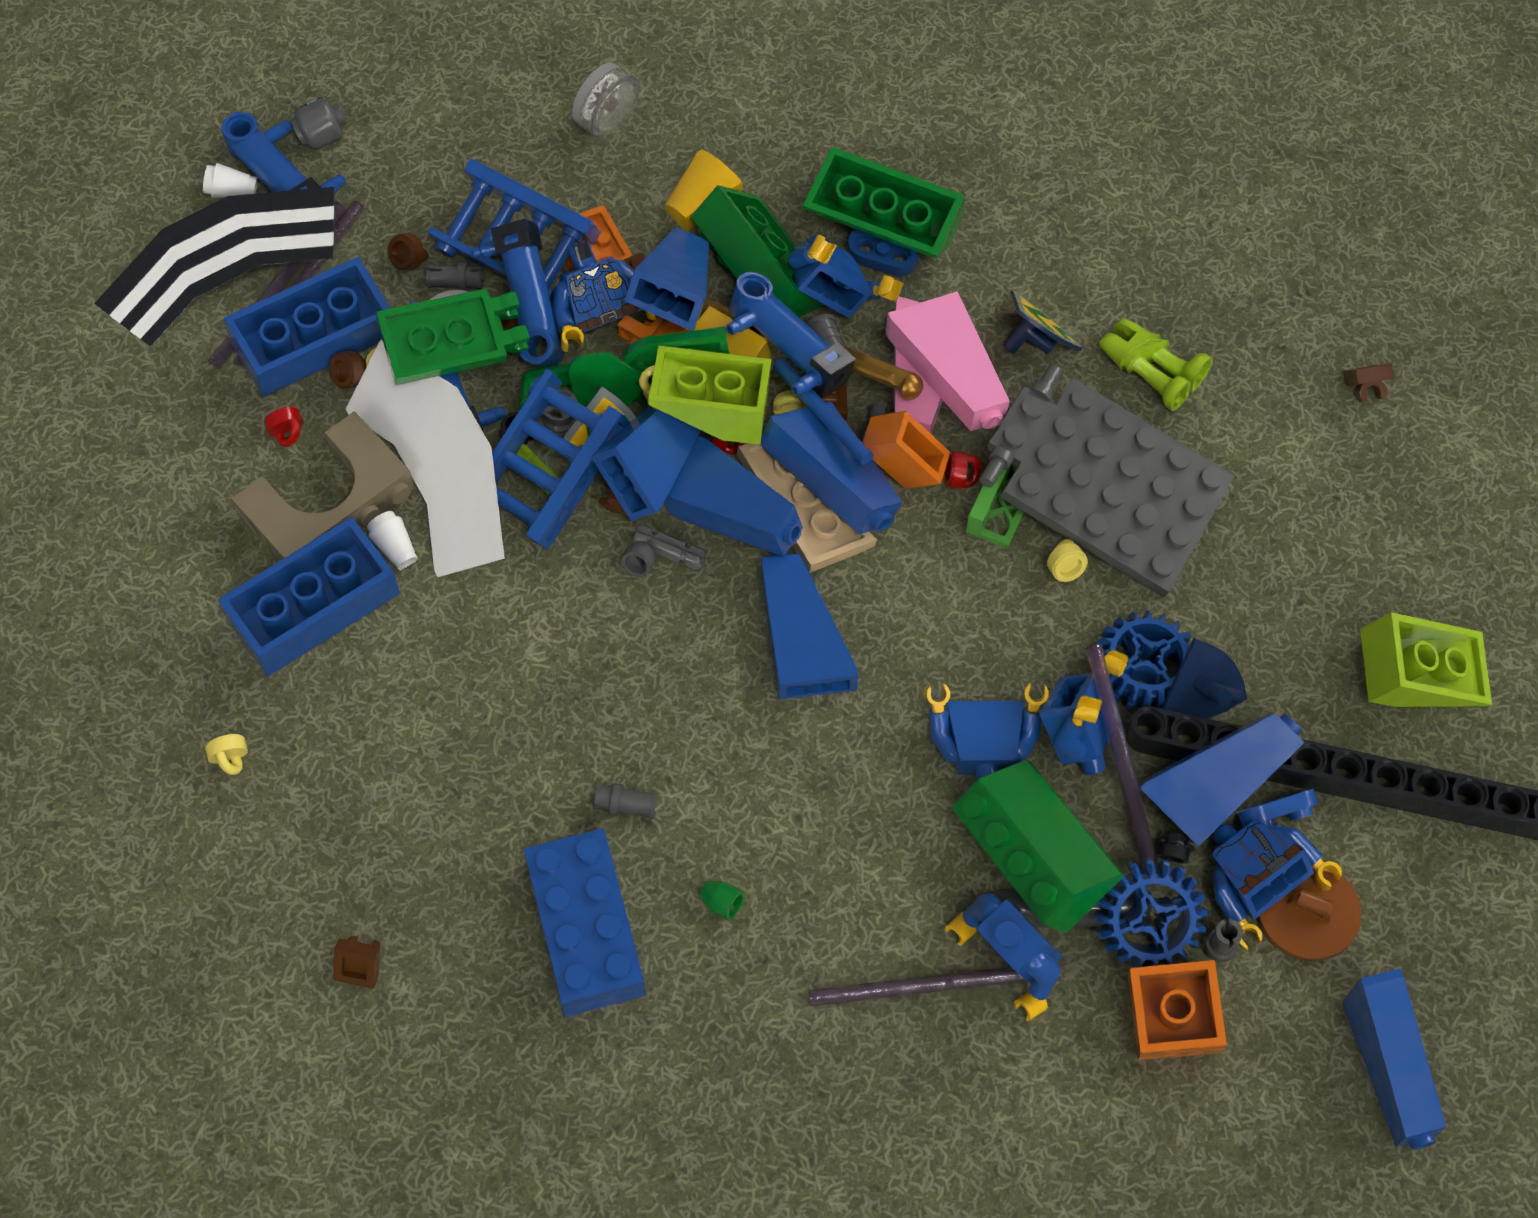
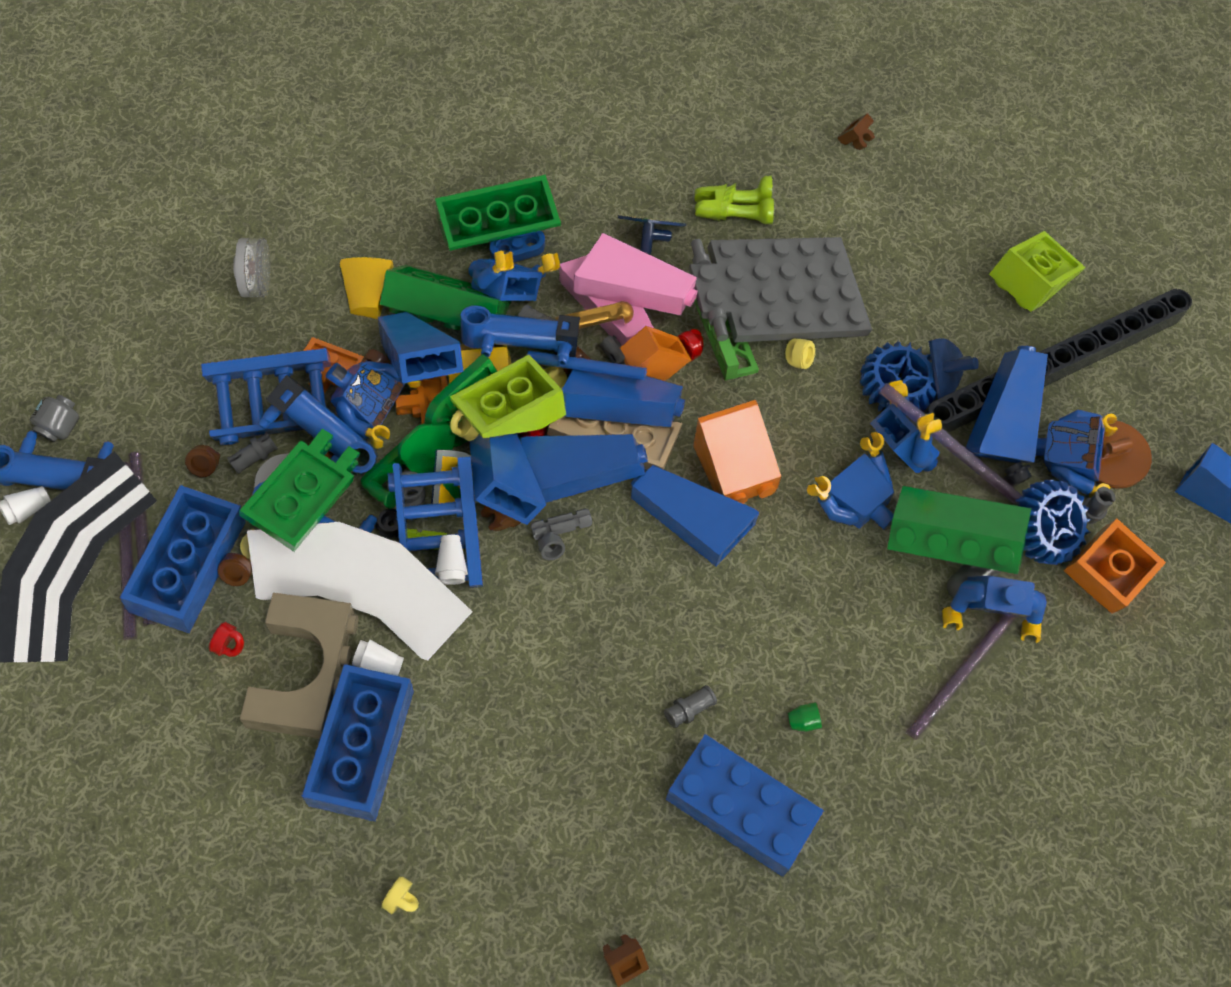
camera: 45 degrees left, 0 degrees up
(525, 499) = (451, 562): none -> white cone
(893, 606) = (737, 453): none -> slope
(1294, 805) = (1052, 401): blue plate -> none

